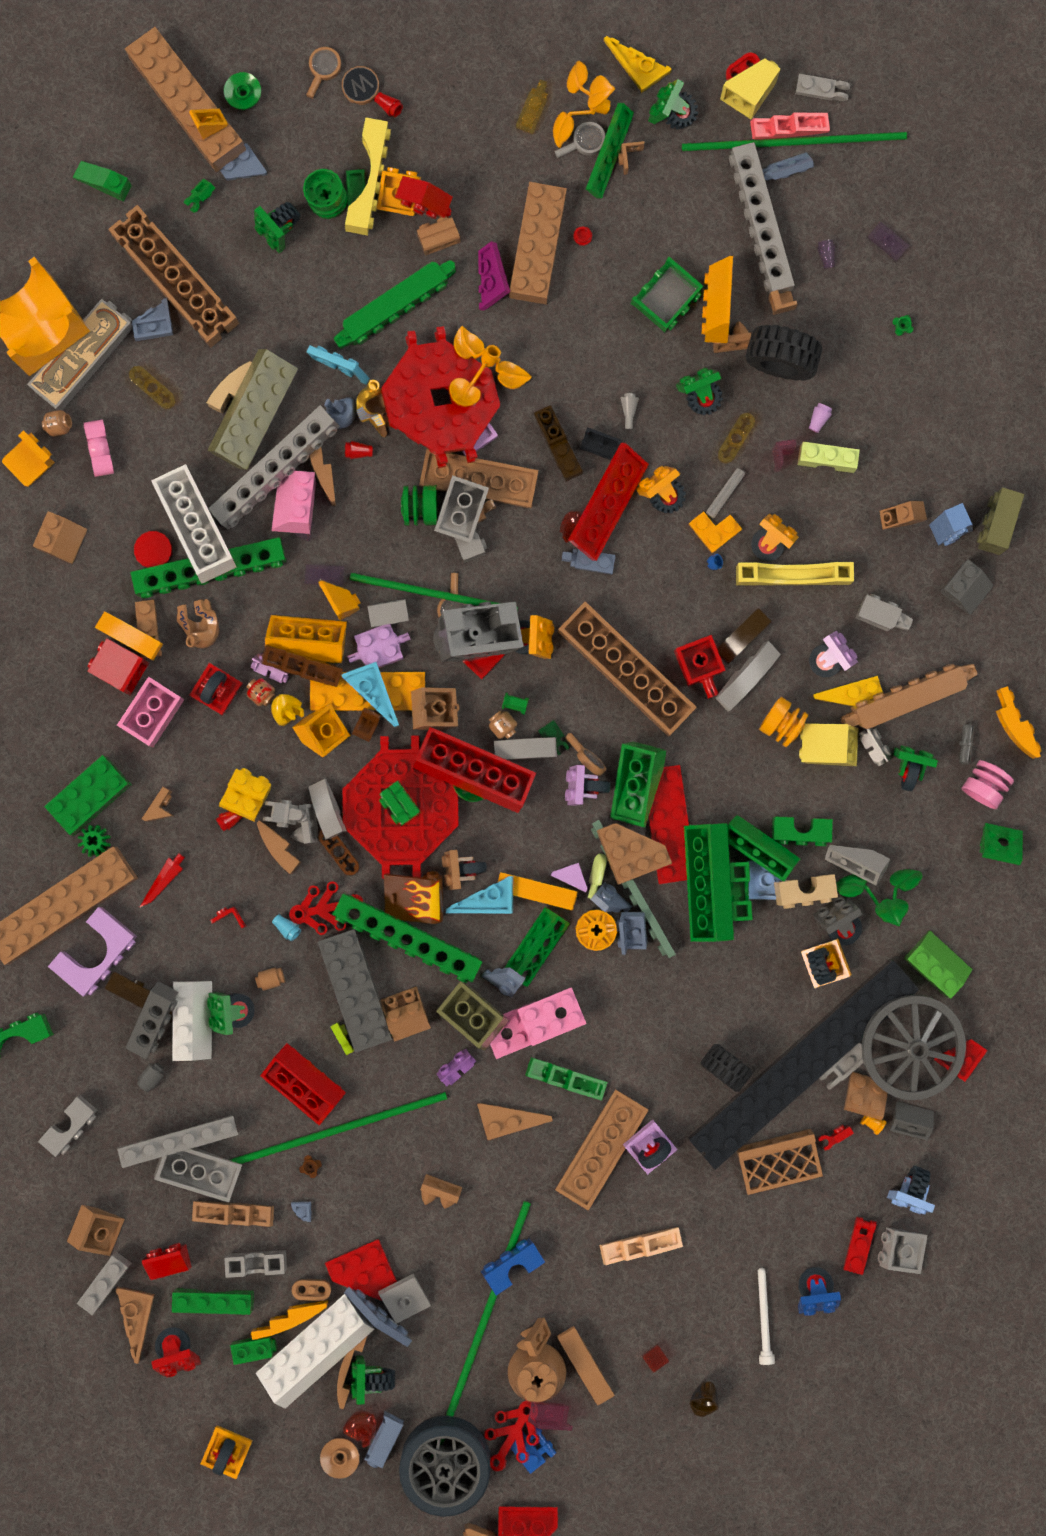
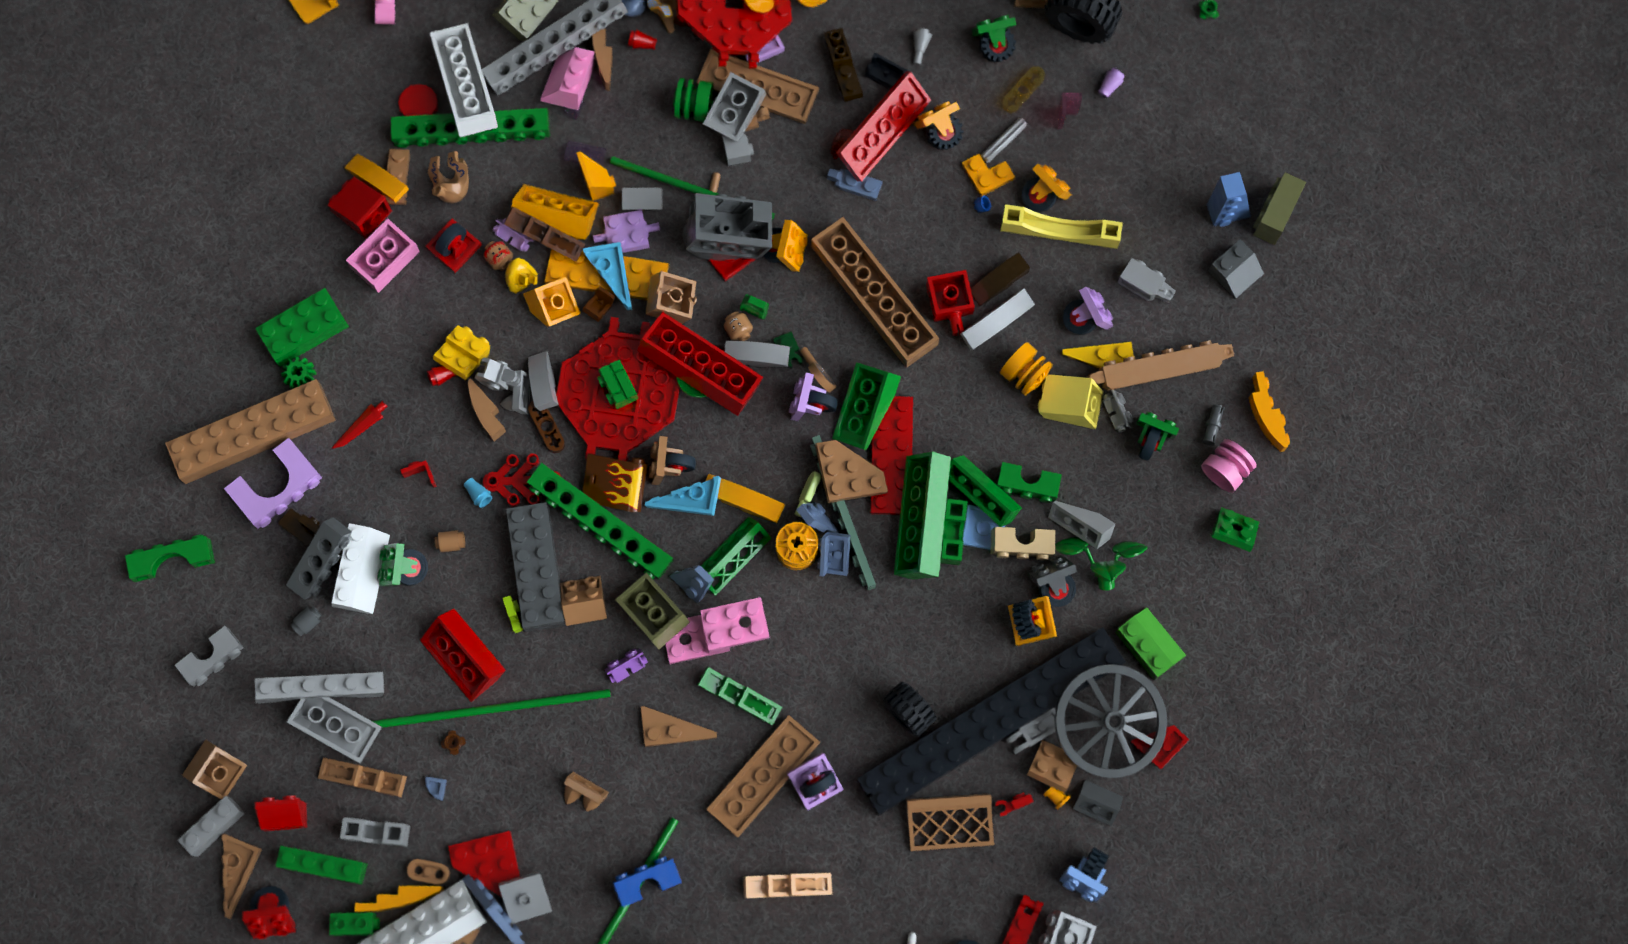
camera: 10 degrees right, 10 degrees down
(60, 537) = (327, 75): medium nougat slope -> none
(155, 810) = (367, 353): medium nougat slope -> none
(571, 875) = (780, 488): lavender slope -> none
(825, 455) = (1105, 116): yellowish green arch -> none
(903, 514) = (1181, 188): medium nougat slope -> none

